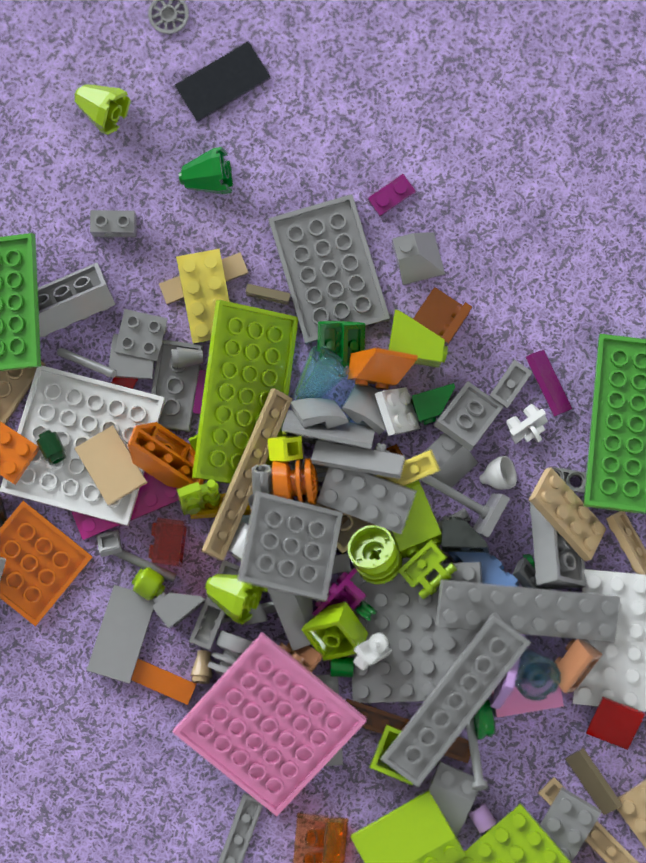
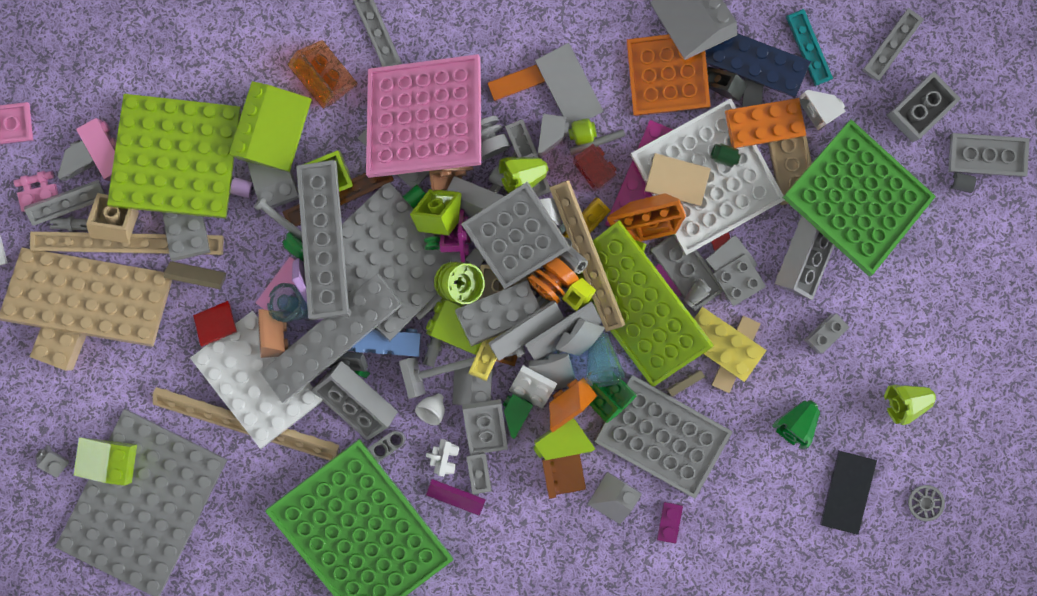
camera: 135 degrees right, 5 degrees up
(86, 362) = (756, 230): light grey bar -> none
(109, 543) = (631, 133): light grey tile -> none
(195, 496) = (605, 210): lime plate -> none
(200, 672) = (498, 109): tan cone -> none
(372, 651) = (403, 220): white hips -> none
(422, 564) = (423, 304): lime plate -> none
(461, 537) = (416, 345): pearl dark grey slope -> none
(567, 514) = (364, 423): tan plate -> none

